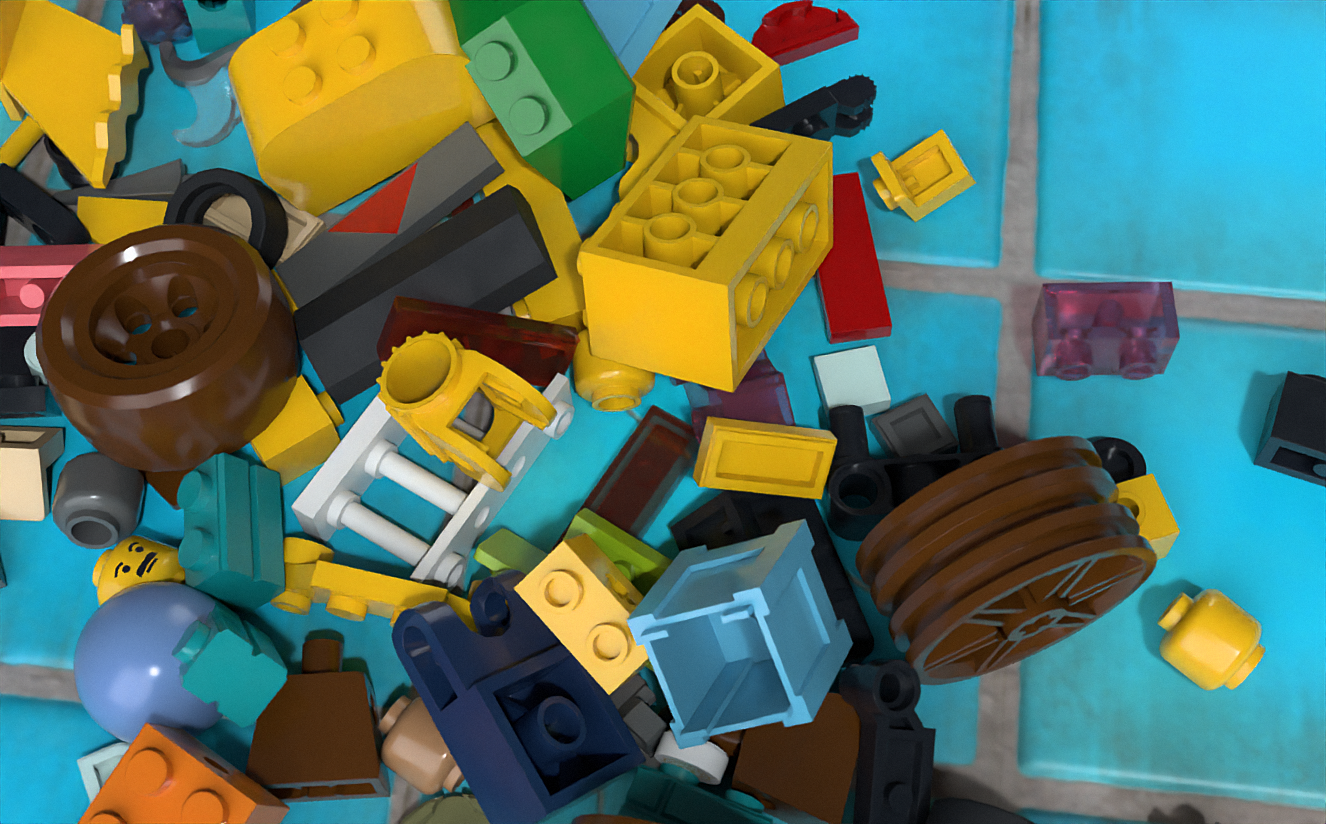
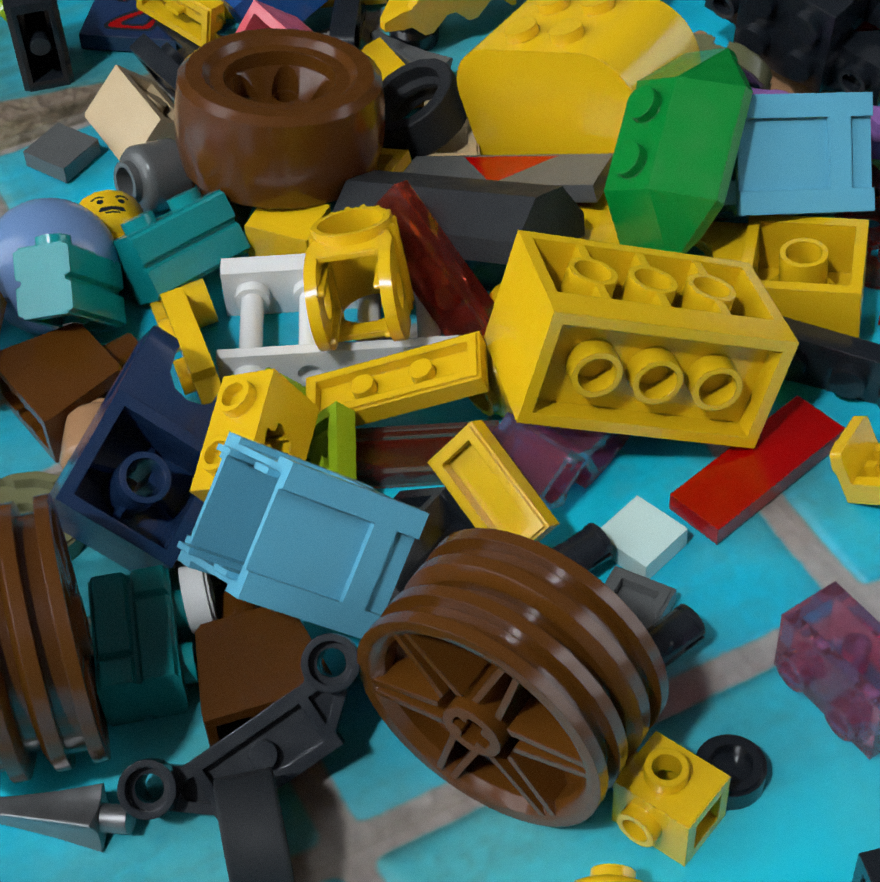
camera: 55 degrees right, 15 degrees down
(578, 455) = (406, 379): none -> yellow tile

